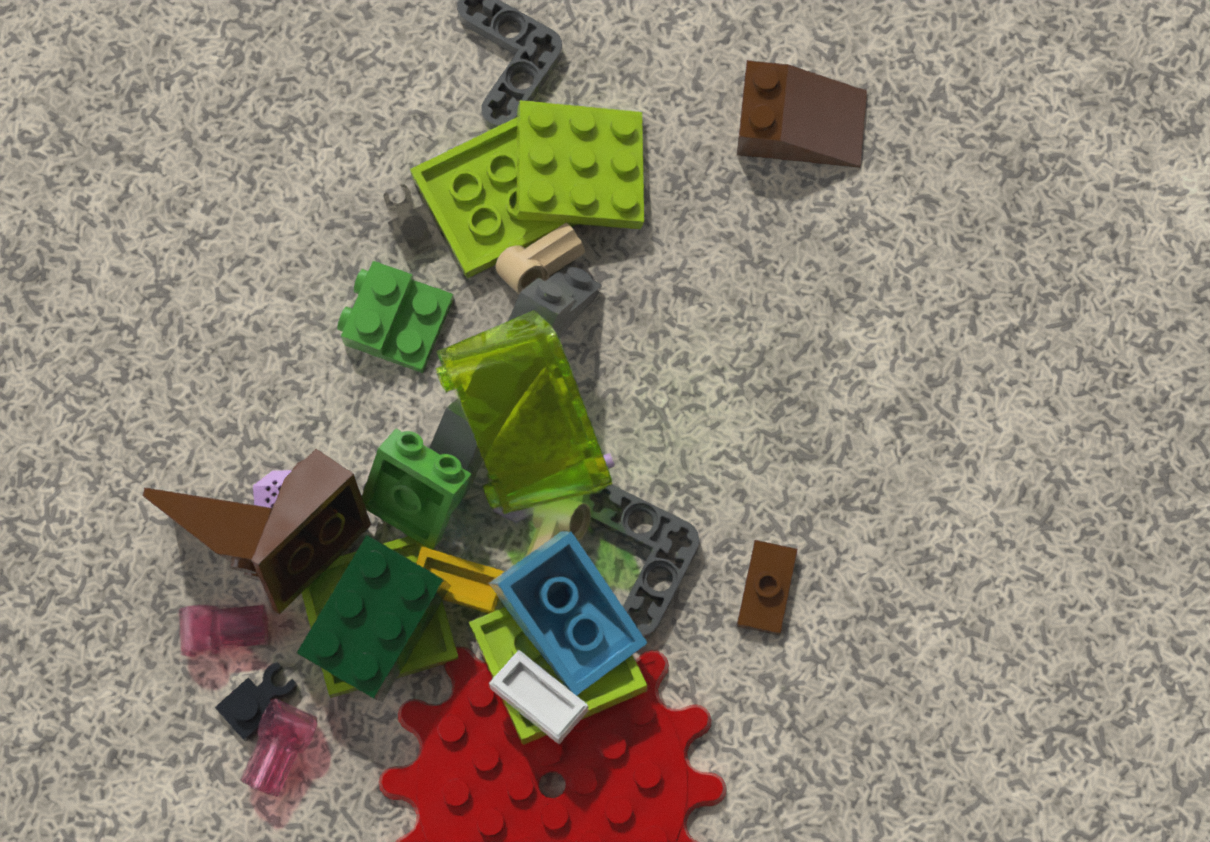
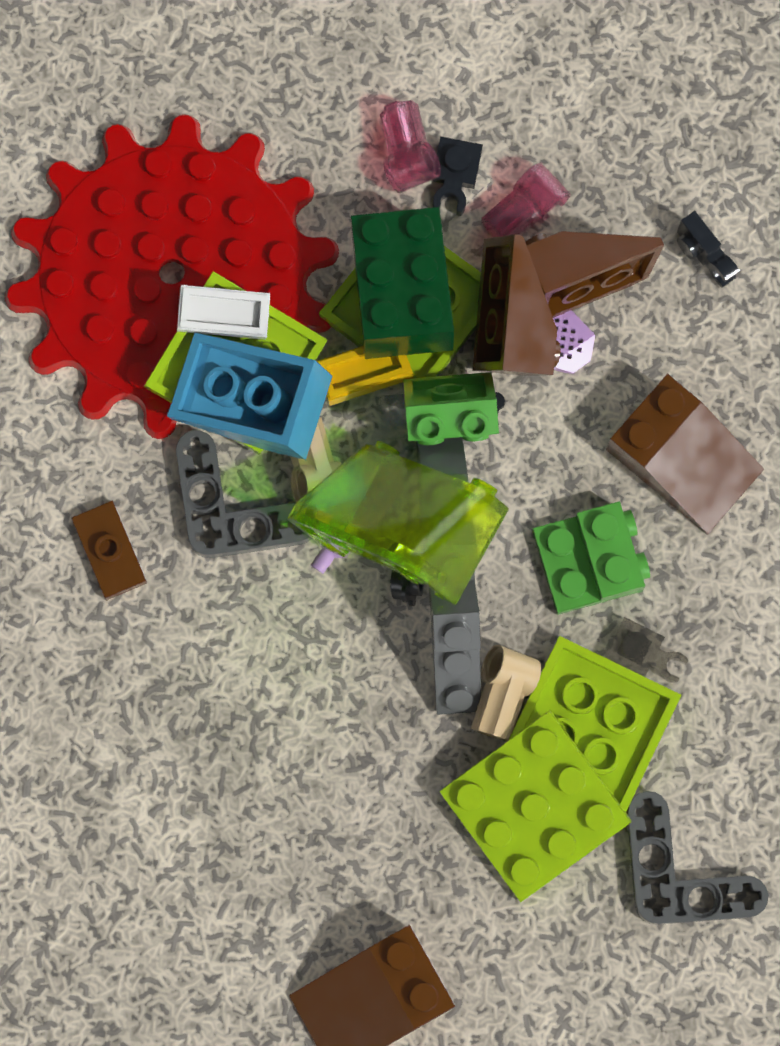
camera: 140 degrees right, 5 degrees up
(111, 497) = (700, 242): none -> black plate
(261, 345) = (685, 454): none -> slope

